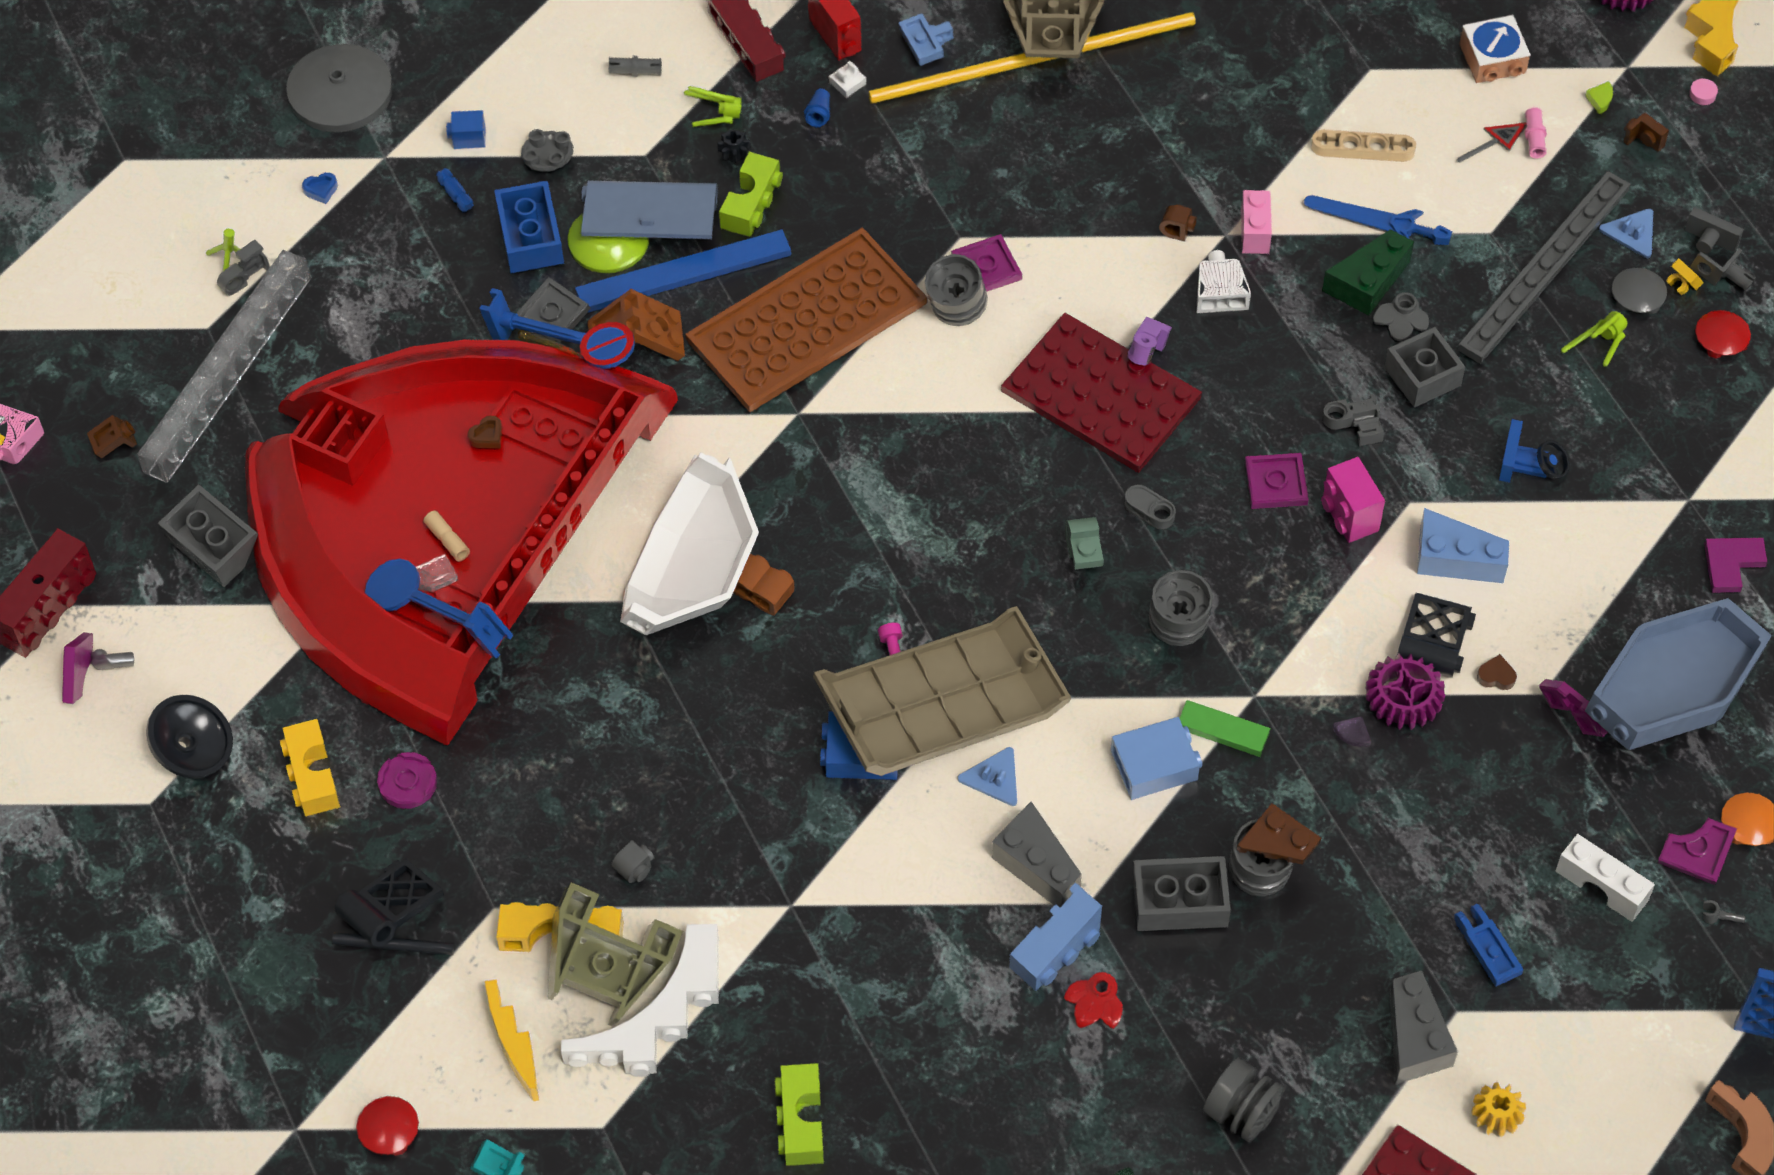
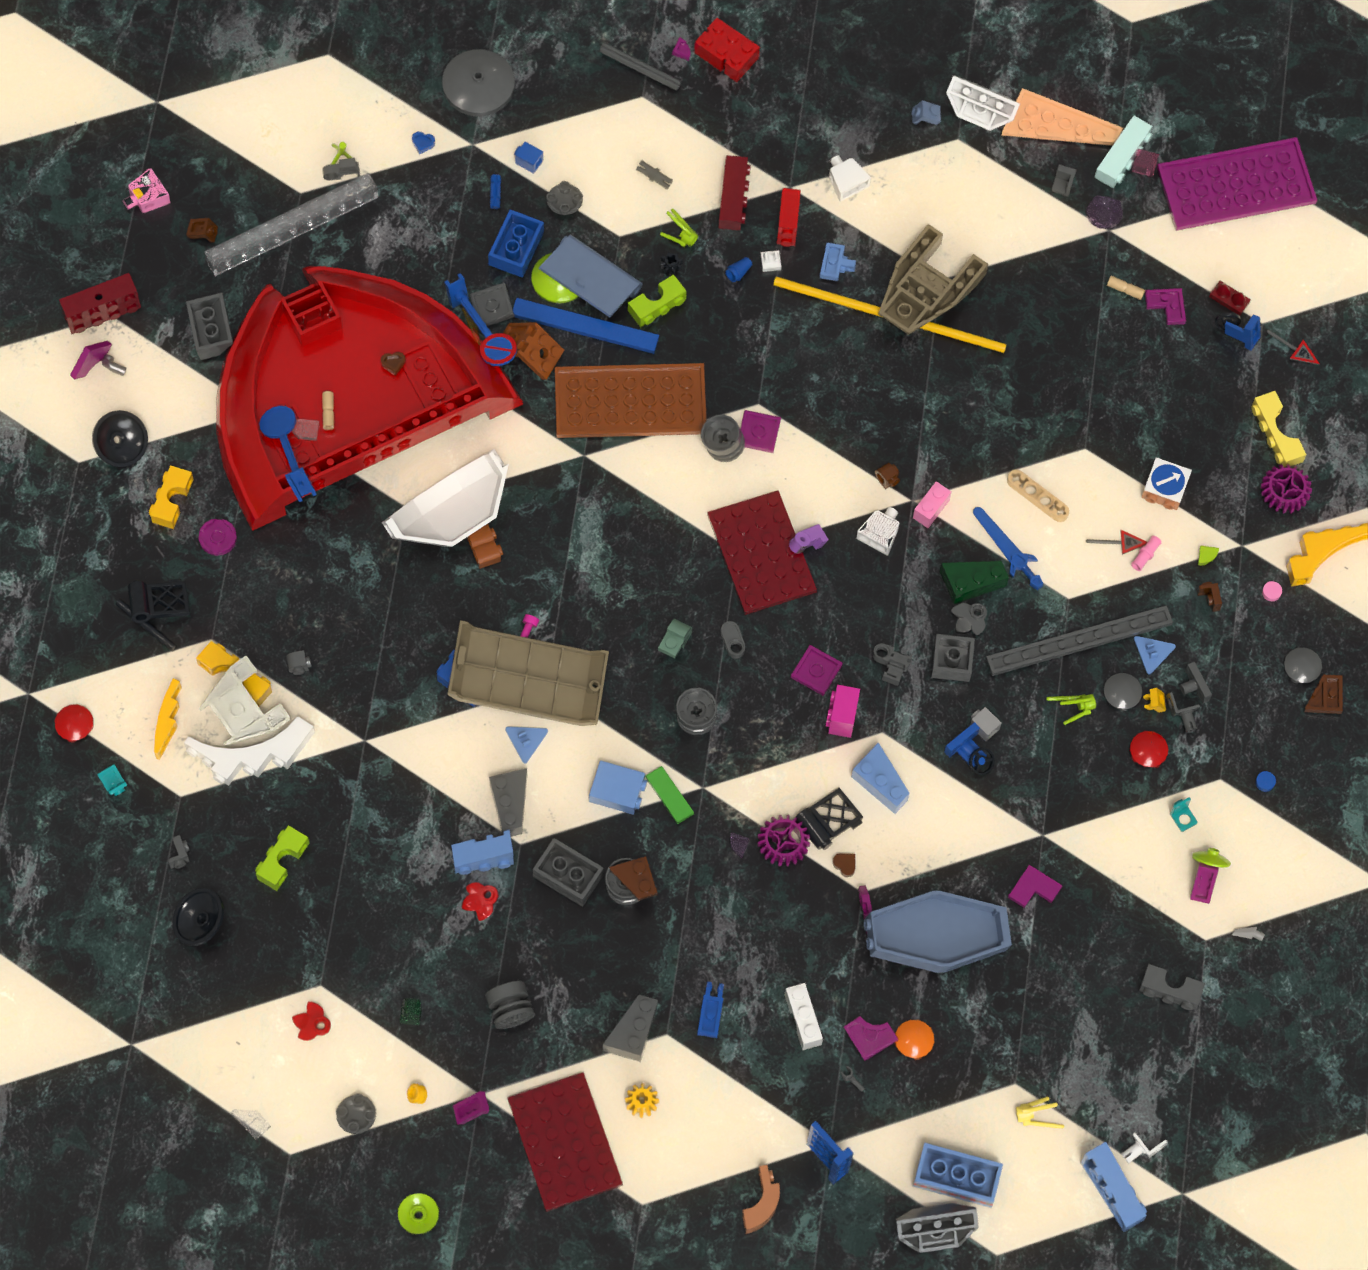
camera: 30 degrees right, 10 degrees up
(1523, 410) = (987, 722): none -> light grey brick

